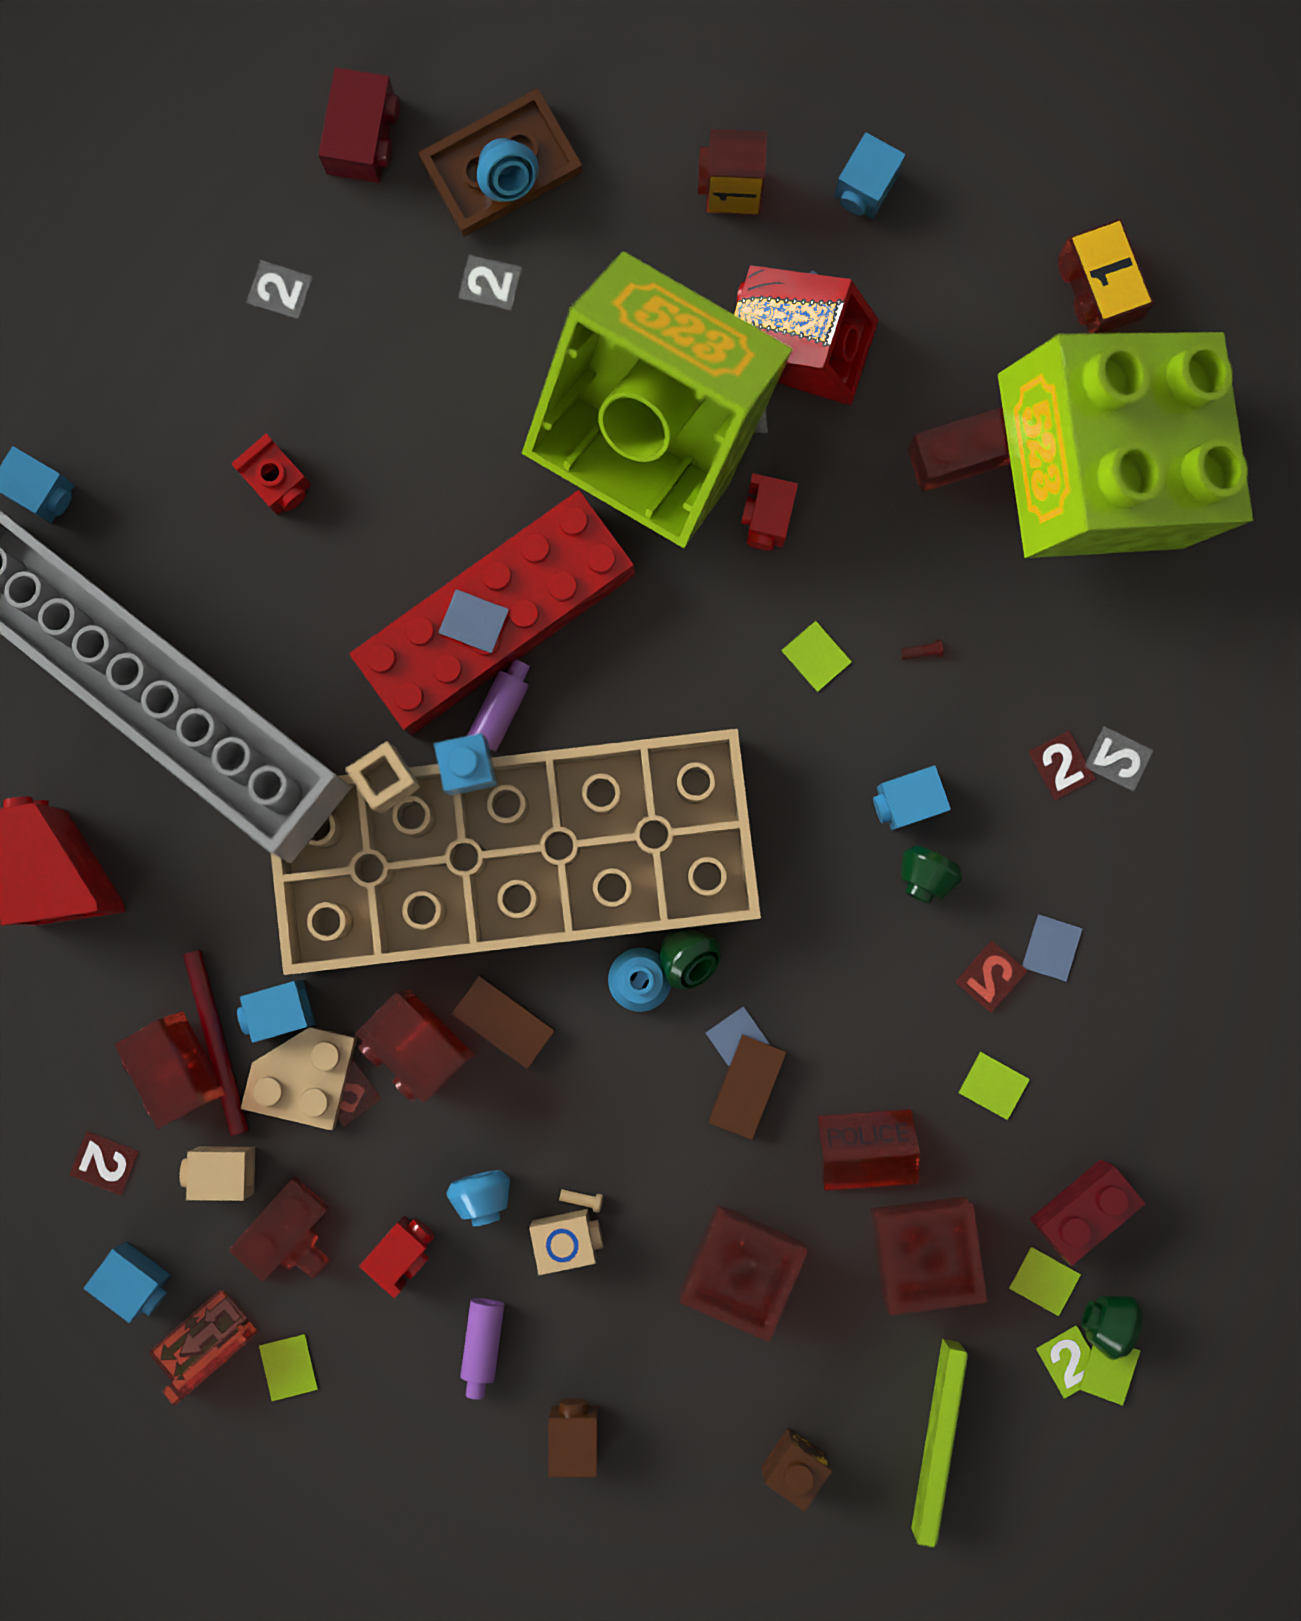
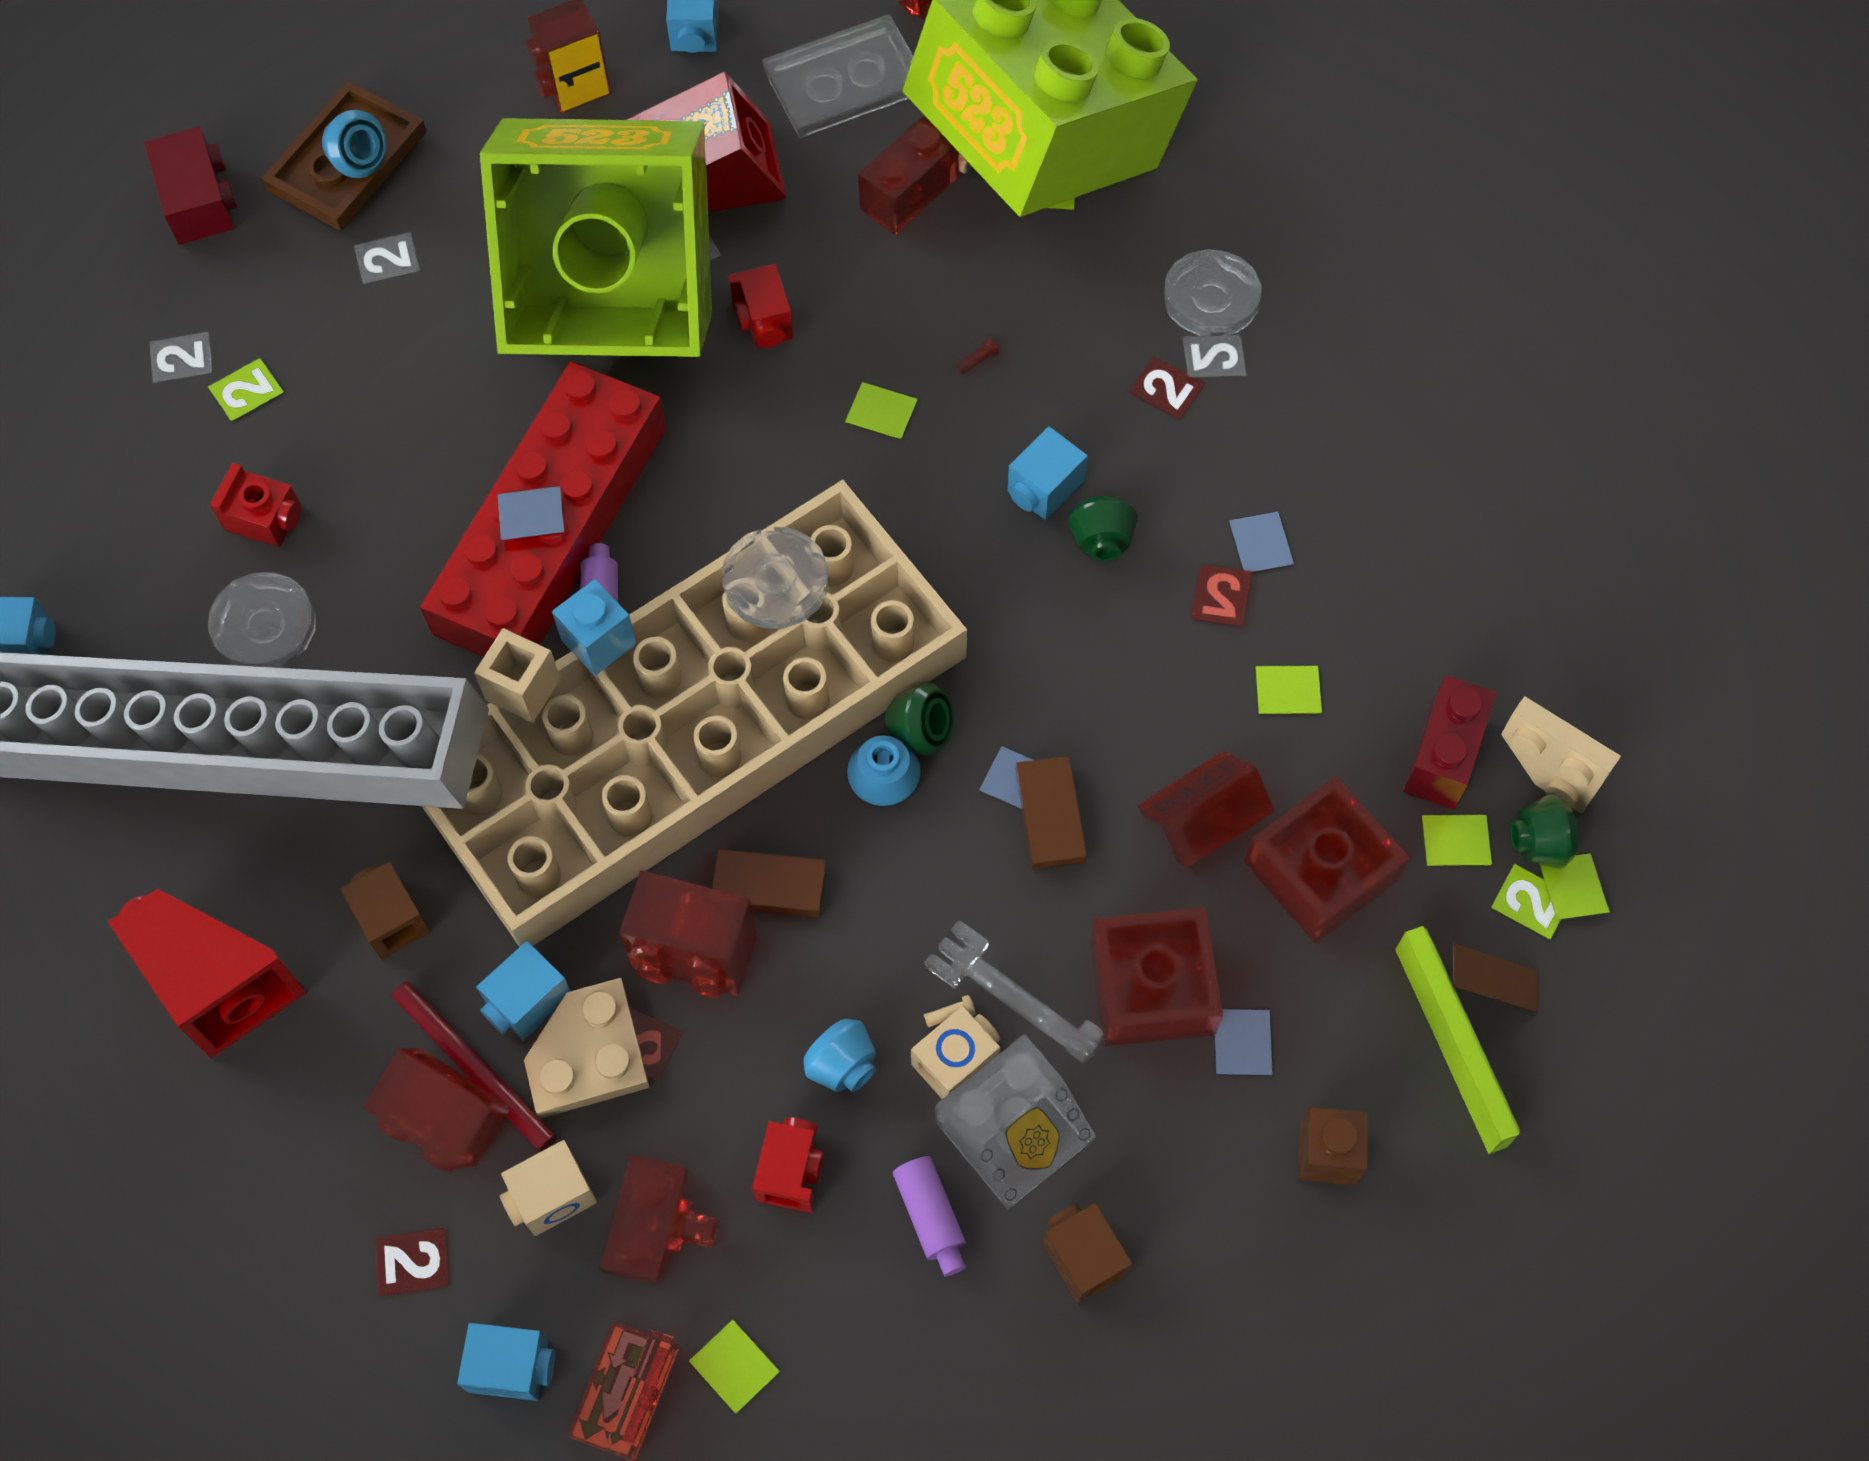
camera: 35 degrees left, 20 degrees down
(207, 885) = (384, 909): none -> reddish brown brick
(231, 579) = (261, 620): none -> clear tile
(317, 350) = (245, 389): none -> lime sticker
(577, 1314) = (1014, 1121): none -> clear slope
(634, 790) = (775, 577): none -> clear tile
(662, 1279) = (967, 961): none -> clear hinge
(787, 1345) = (1244, 1043): none -> sand blue sticker
(967, 308) = (841, 75): none -> clear tile
(997, 1413) = (1494, 977): none -> reddish brown sticker
(1152, 701) = (1212, 292): none -> clear tile
(1160, 1288) = (1558, 754): none -> tan plate

